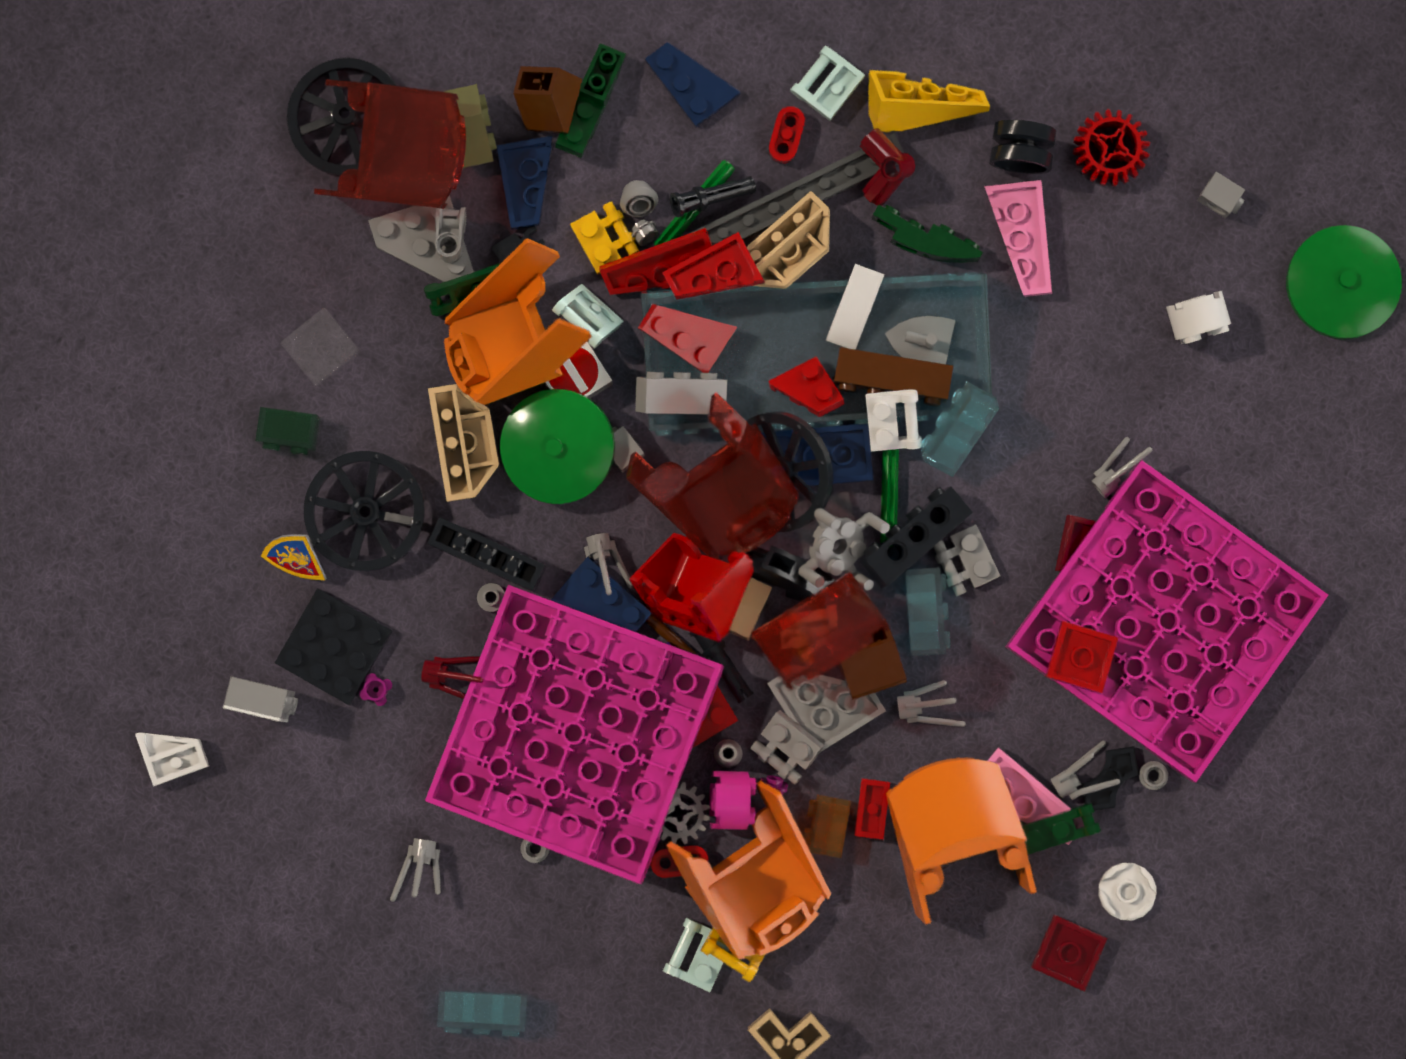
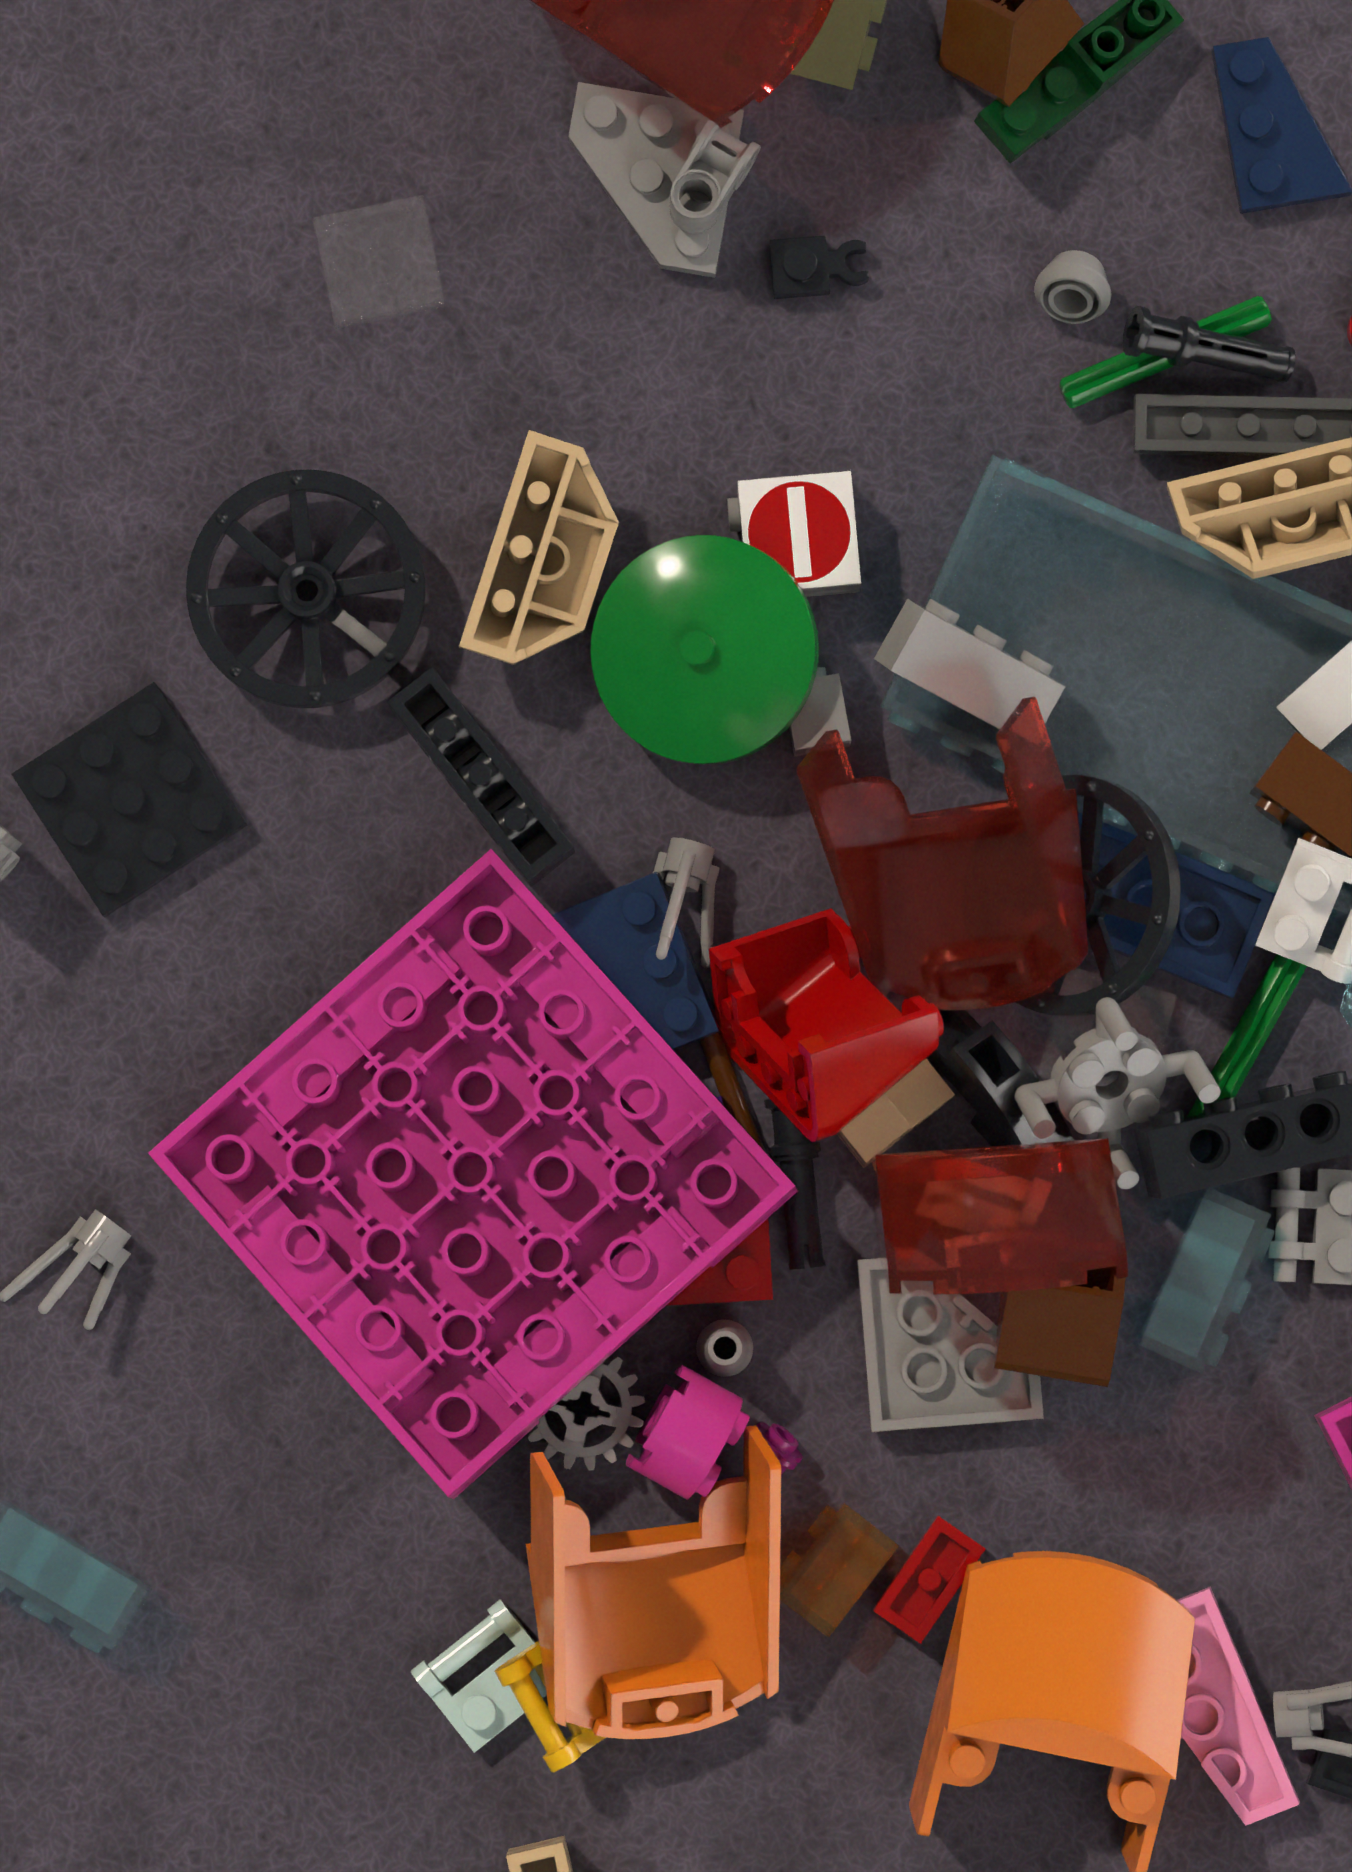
camera: 30 degrees right, 0 degrees up
(287, 429) = (246, 378): clear green brick -> none
(294, 556) = (143, 605): shield -> none
(380, 696) = (148, 909): magenta plate -> none
(436, 672) = (285, 937): dark red plant -> none
(456, 288) = (686, 293): dark green plate -> none
(481, 597) = (437, 842): light grey plate -> none
(498, 335) = (704, 398): orange windscreen -> none
(524, 179) = (890, 150): dark blue wing -> none
(529, 856) = (282, 1347): light grey plate -> none
(584, 305) = (888, 437): light aqua plate -> none
(596, 241) = (961, 330): yellow plate -> none
(644, 232) = (1053, 352): light grey plate -> none
(645, 267) = (1071, 430): red wing -> none
(673, 870) = (520, 1504): red plate -> none
(687, 335) = (1035, 572): red wing -> none
(714, 270) = (1144, 480): red wing -> none
(791, 740) = (850, 1386): light grey plate -> none
(809, 387) = (1204, 775): red wing -> none
(911, 706) = (1092, 1434): light grey plant -> none
(1059, 828) = (1244, 1789): dark green plate -> none

